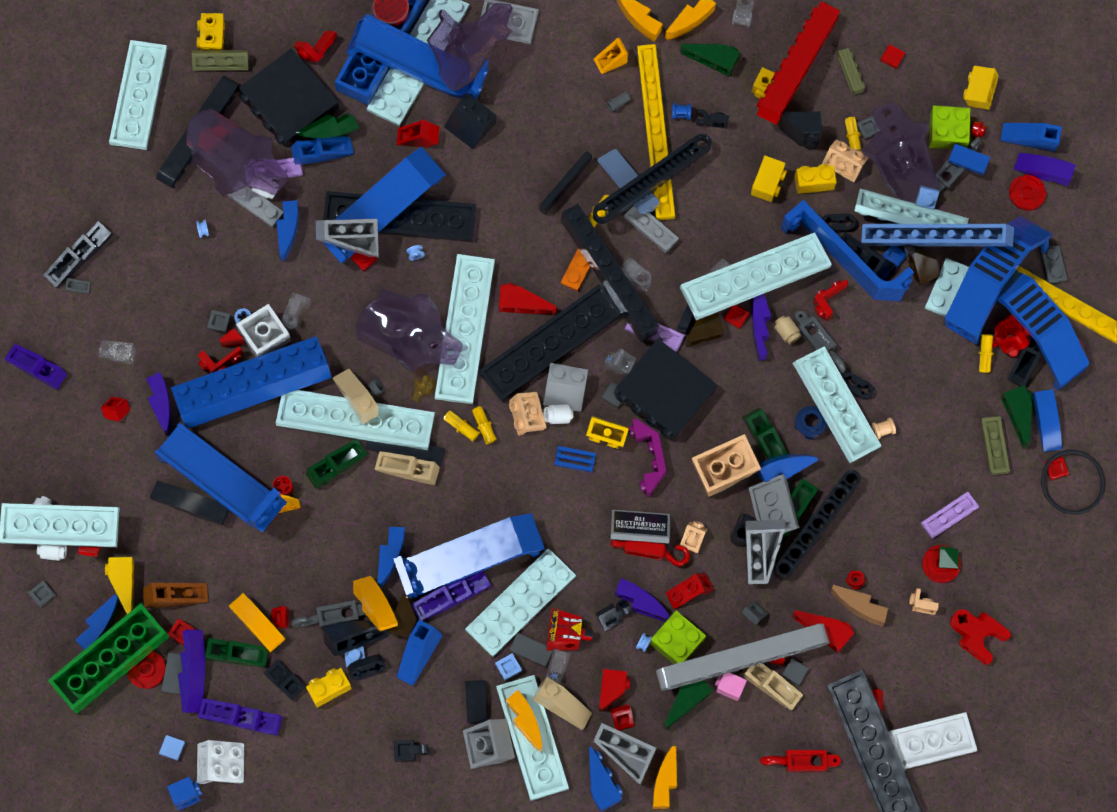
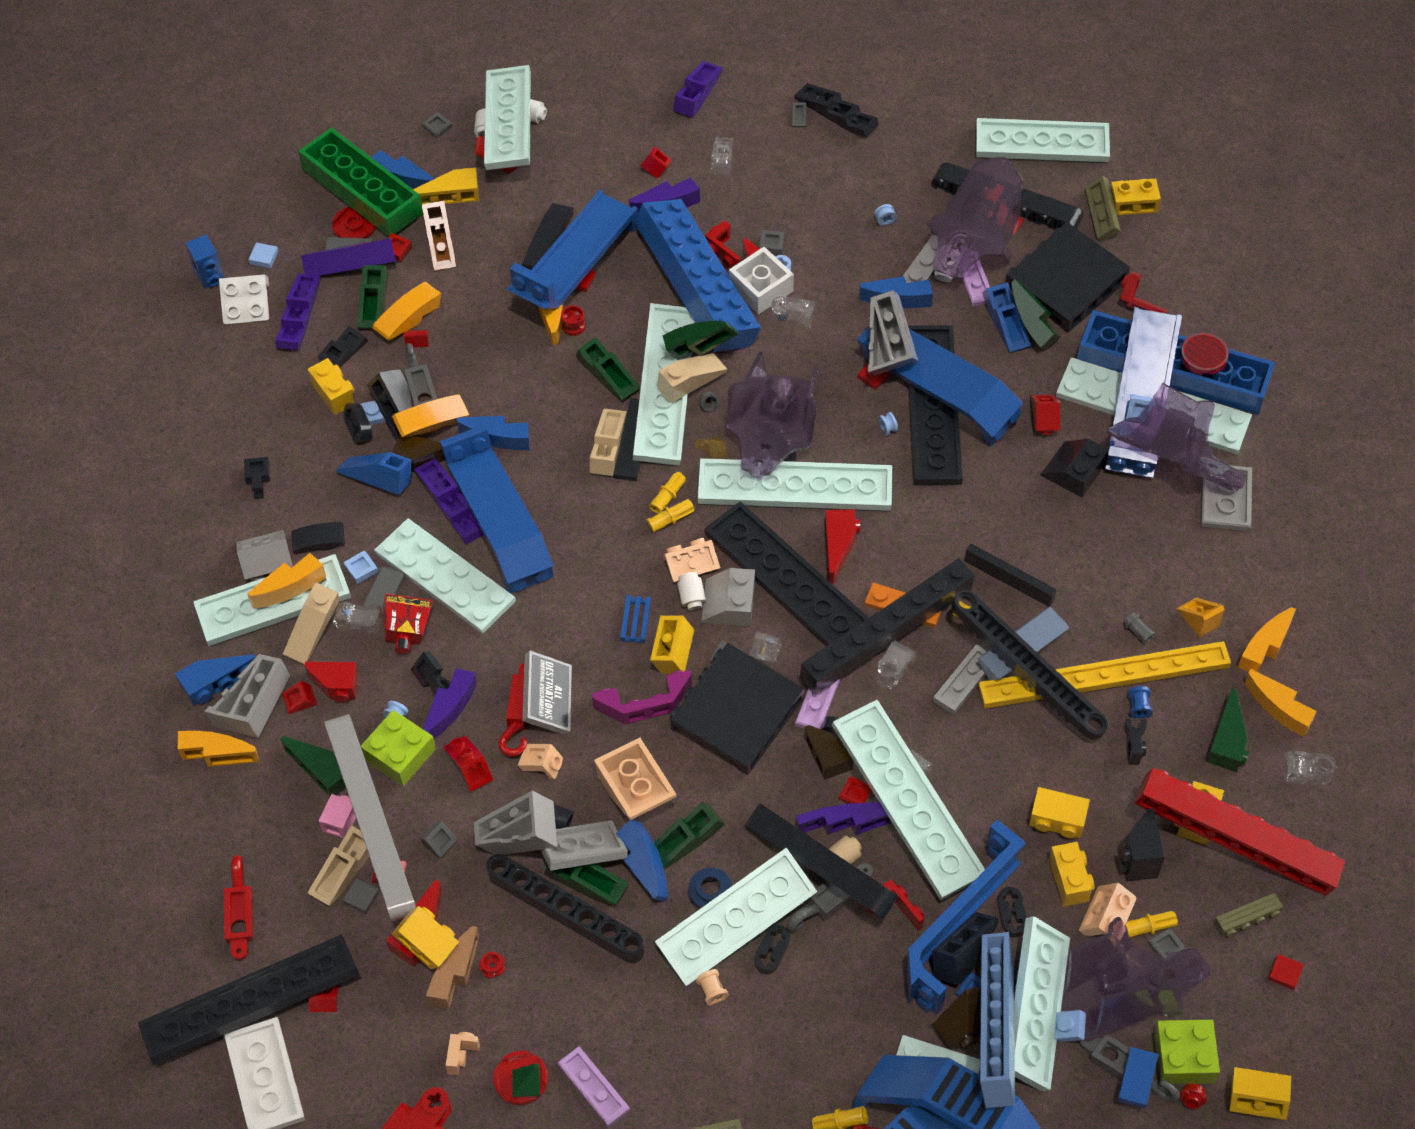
camera: 90 degrees right, 15 degrees down
(329, 383) = (698, 337): none -> dark green slope
(431, 64) = (1136, 405): none -> light blue plate
(798, 341) = (822, 860): none -> black beam
(847, 617) = (425, 937): none -> yellow brick

